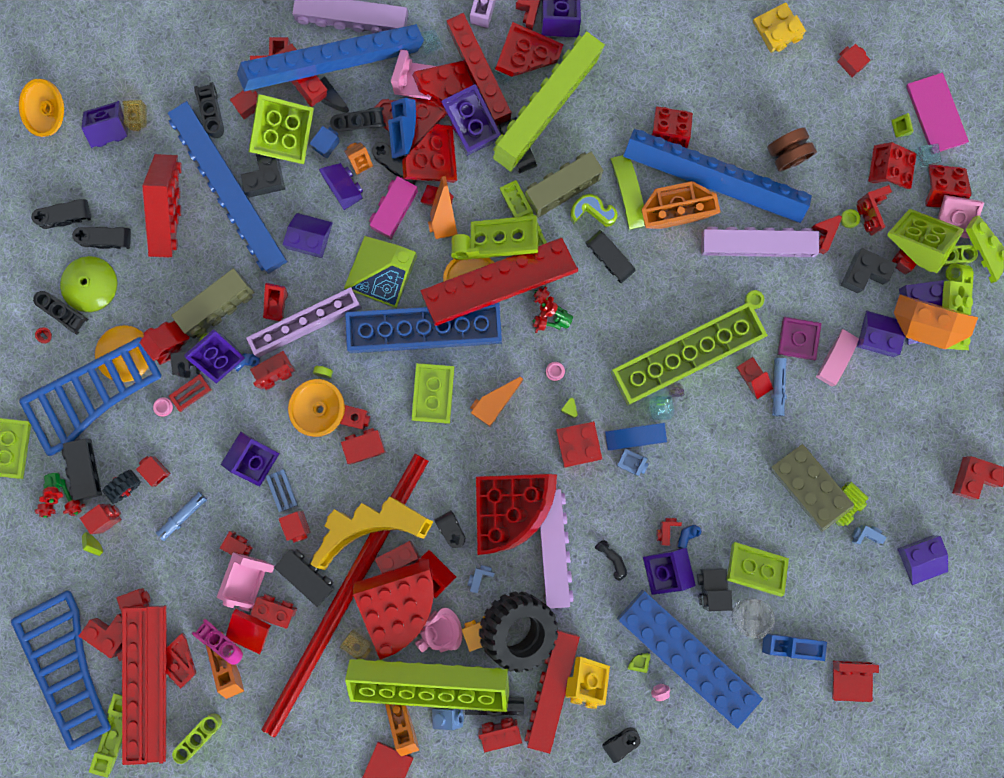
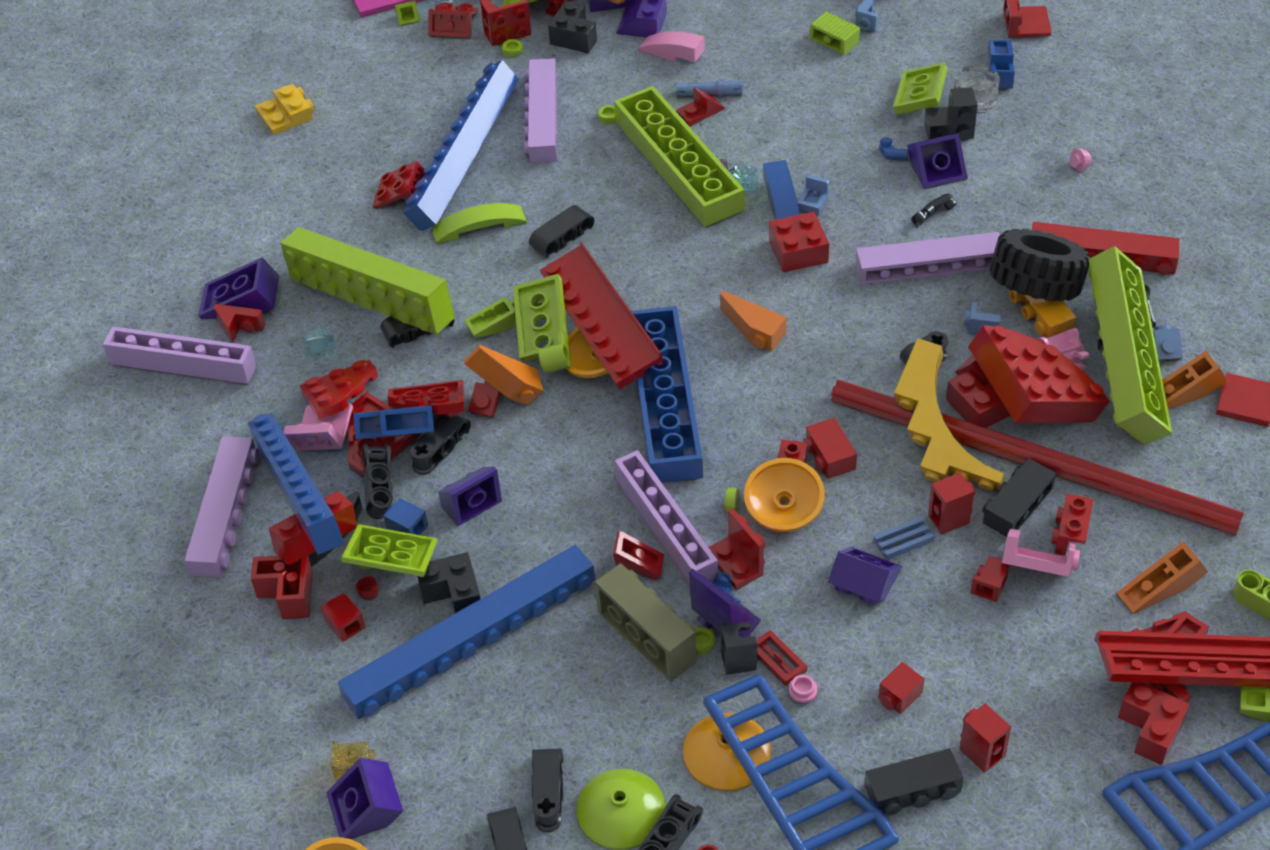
camera: 90 degrees left, 35 degrees down
(52, 495) = (963, 798): red plant -> none
(91, 544) = (1025, 764): lime tile -> none
(121, 486) = (931, 718): black wheel -> none
(135, 598) = (1099, 697): red brick -> none
(161, 204) = (504, 678): red brick -> none
(163, 341) = (707, 668): red brick -> none
(182, 515) = (969, 656): medium blue pin -> none
(207, 98) = (336, 661): black piece -> none
(209, 635) = (1126, 598): dark pink piece -> none
(247, 631) = (1108, 550): red tile -> none
(307, 235) = (540, 530): dark purple slope -> none
(353, 638) = (1097, 433): clear yellow brick -> none
(358, 157) = (429, 468): orange slope -> none
(381, 271) = (585, 448): lime slope -> none
(393, 207) = (500, 439): dark pink brick -> none
(433, 393) = (749, 385): lime plate -> none
(471, 119) = (388, 357): dark purple slope -> none
(478, 68) = (286, 373): red brick -> none
(499, 735) = (1168, 289): red bracket -> none
(511, 509) = (890, 285): red brick -> none
(526, 51) = (294, 315): red plate -> none
(549, 308) = (640, 267): red plant -> none
(555, 371) = (708, 273): bright pink plate -> none
(564, 184) = (471, 265): olive brick -> none
(570, 408) = (753, 253): lime slope -> none
(588, 683) = (1093, 212): yellow plate -> none
(594, 206) = (500, 249): lime animal -> none
(619, 744) = (1150, 188): black piece -> none
(640, 663) = (1050, 181): lime tile -> none
(663, 533) = (891, 165): red bracket -> none
(679, 205) = (498, 167): orange wedge -> none
(690, 659) = (1033, 138): blue brick -> none
(792, 149) = (434, 82): copper wheel -> none
(799, 338) = (652, 74): magenta tile -> none
(812, 487) = (821, 47): olive brick -> none
(828, 229) = (522, 55): red slope -> none
(853, 59) = (330, 50): red brick -> none

